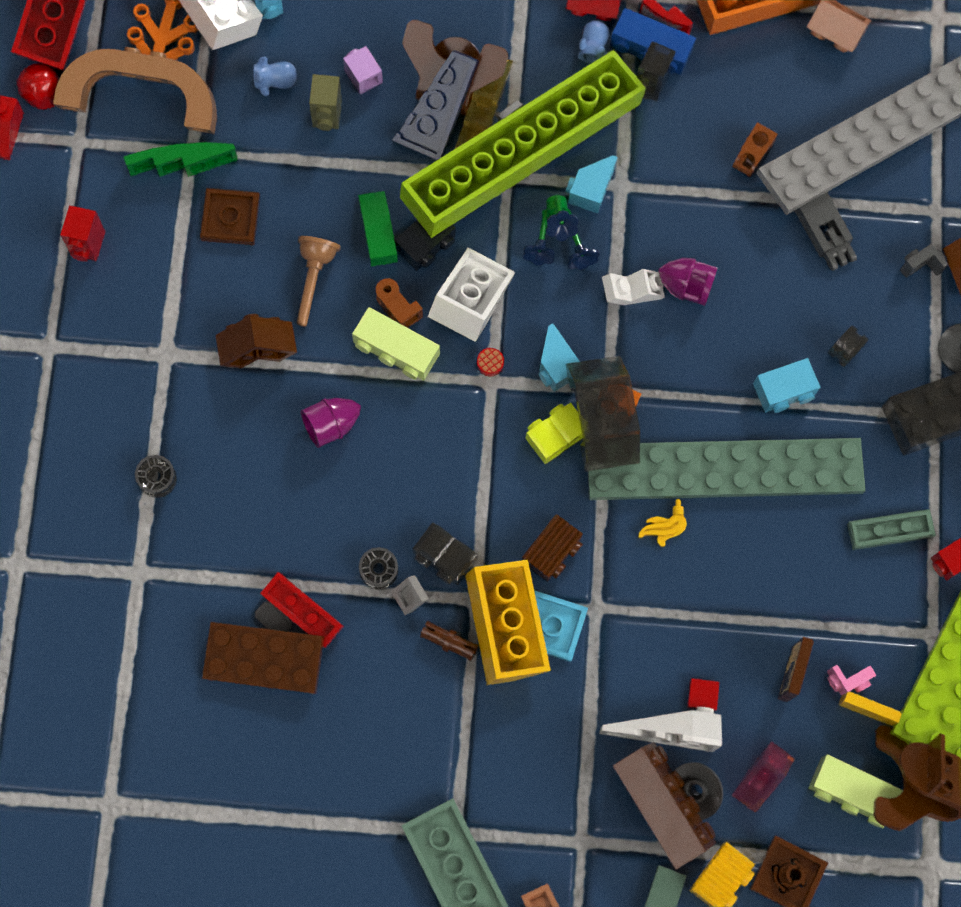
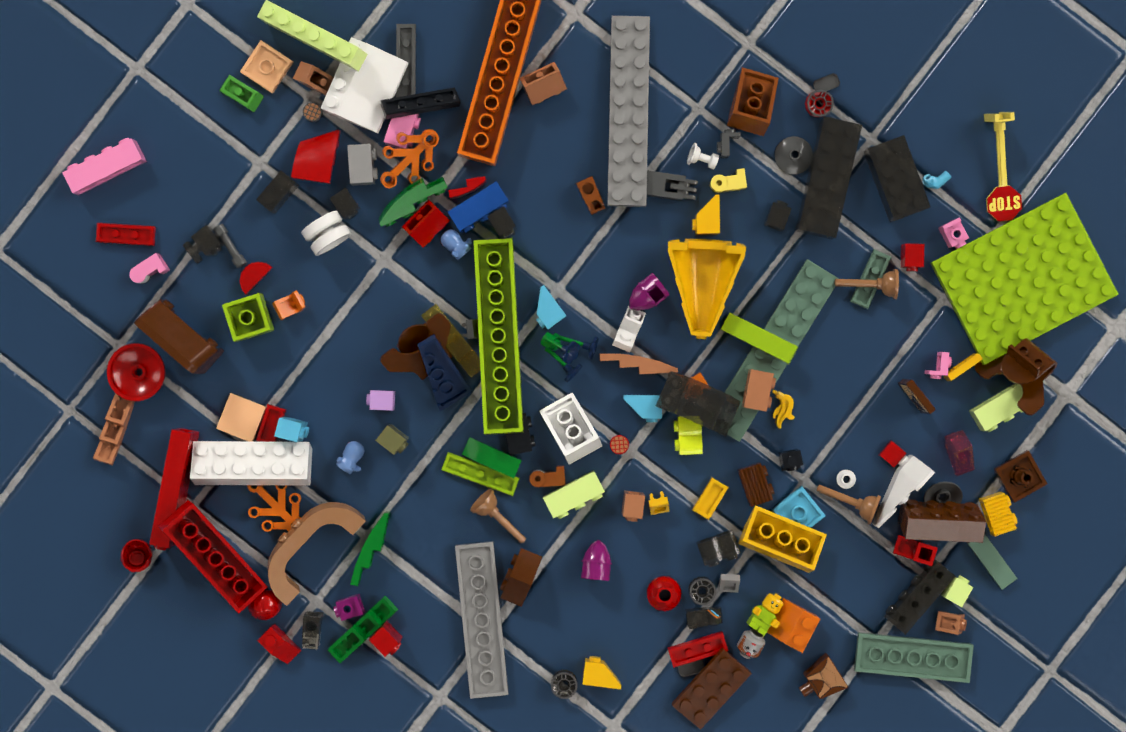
camera: 55 degrees left, 15 degrees up
(40, 152) = (312, 629): none -> clear smoke leg
(55, 201) = (362, 629): none -> green slope
(98, 184) = (355, 604): none -> magenta brick
(173, 333) = (481, 619): none -> light grey plate
(195, 509) = (599, 674): none -> yellow slope
(230, 216) = (426, 540): reddish brown tile -> none
(344, 541) = (664, 583): none -> red piece
(346, 590) = (703, 616): none -> clear smoke leg
(349, 229) = (479, 474): none -> lime tile
(351, 670) = (751, 644): none -> light grey head
(364, 790) = (822, 678): none -> torso
(397, 663) = (764, 615): none -> piece
(408, 708) = (795, 625): none -> orange slope
(429, 415) = (633, 505): none -> nougat brick
(449, 450) = (658, 505): none -> yellow tile
(449, 640) = (769, 577): reddish brown pin -> none
(497, 508) = (710, 498): none -> yellow tile
(551, 845) = (919, 596): none -> clear smoke brick
(591, 888) = (957, 591): none -> yellowish green brick
(603, 328) = (644, 365): none -> nougat slope
(605, 798) = (915, 550): none -> red brick
(610, 571) = (790, 460): none -> black brick
(617, 703) = (866, 507): none -> medium nougat piece
(627, 662) = (841, 475): none -> white plate
(668, 472) = (758, 390): none -> nougat brick
(729, 439) = (759, 338): none -> lime tile
(750, 328) = (704, 279): none -> yellow cone
(786, 386) = (749, 280): medium azure brick -> none
(823, 294) = (708, 218): none -> yellow slope
(848, 346) = (749, 227): clear smoke wheel -> none
(881, 293) = (729, 183): none -> light yellow leg
(884, 235) = (695, 155): none -> white piece
(884, 370) = (777, 215): none -> clear smoke brick
(902, 548) = (888, 283): none -> medium nougat piece

